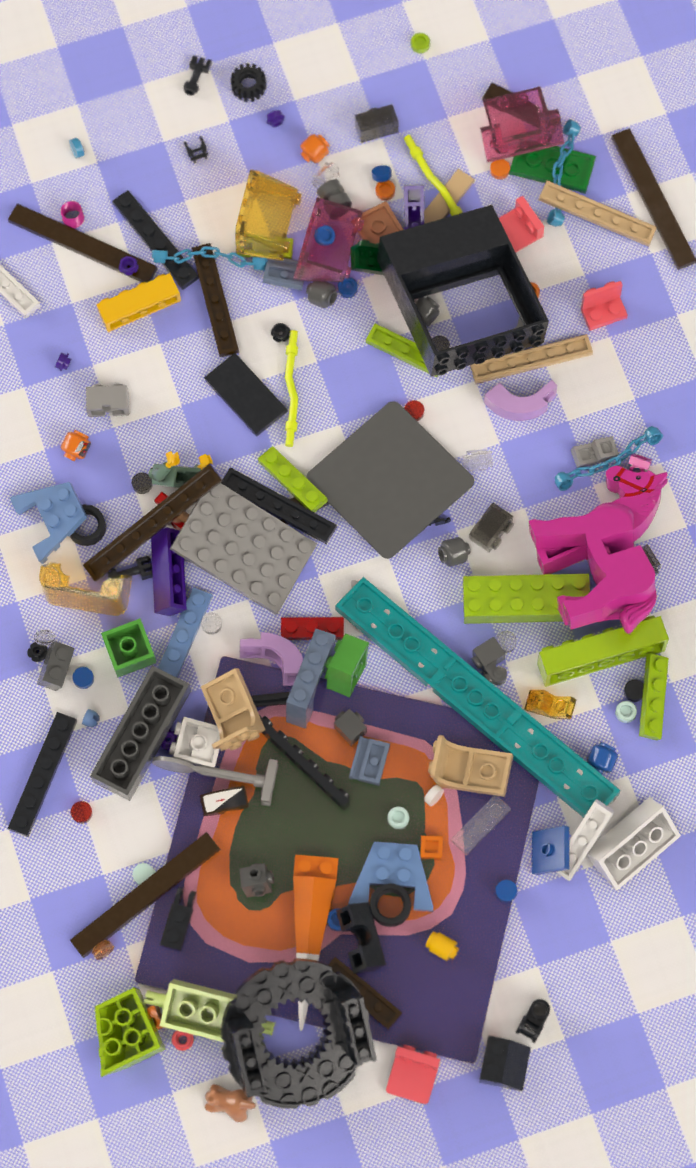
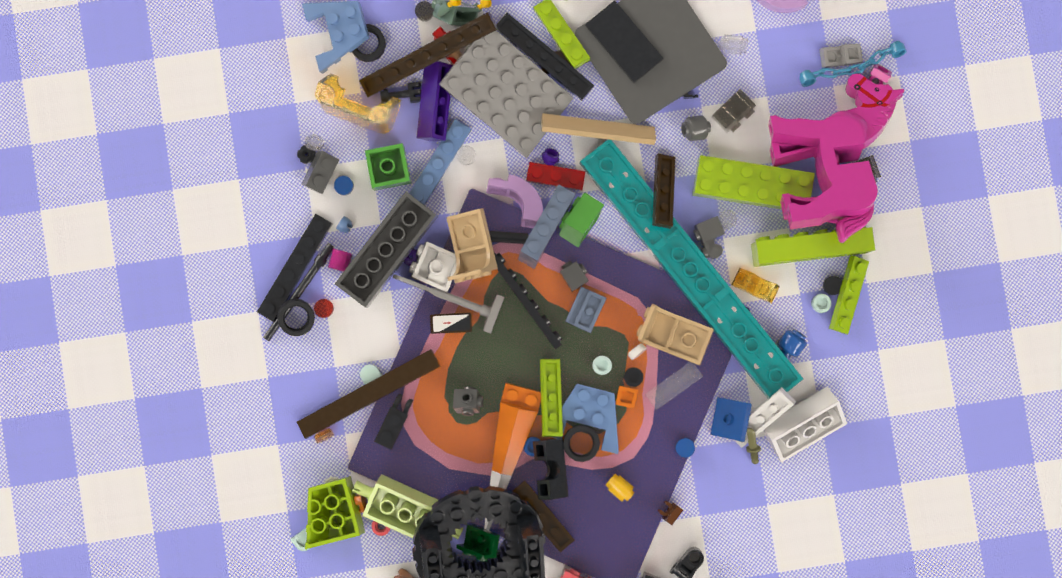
camera: 10 degrees right, 15 degrees up
(64, 813) = (310, 317): none -> black tyre
(69, 762) = (320, 260): none -> black bar
(90, 755) = (339, 260): none -> dark pink piece
(93, 1072) = (299, 540): none -> light aqua tile
(296, 1032) = (479, 543): none -> dark green bracket
(303, 608) = (550, 156): none -> dark purple plate
(348, 861) = (551, 398): none -> lime tile
(349, 569) = (598, 129): none -> tan tile
(360, 476) = (624, 41): none -> black tile
(431, 621) = (663, 191): none -> dark brown tile
(435, 824) = (633, 377): none -> black tile
(505, 965) = (672, 512): none -> reddish brown tile
(580, 878) = (753, 448): none -> olive piece

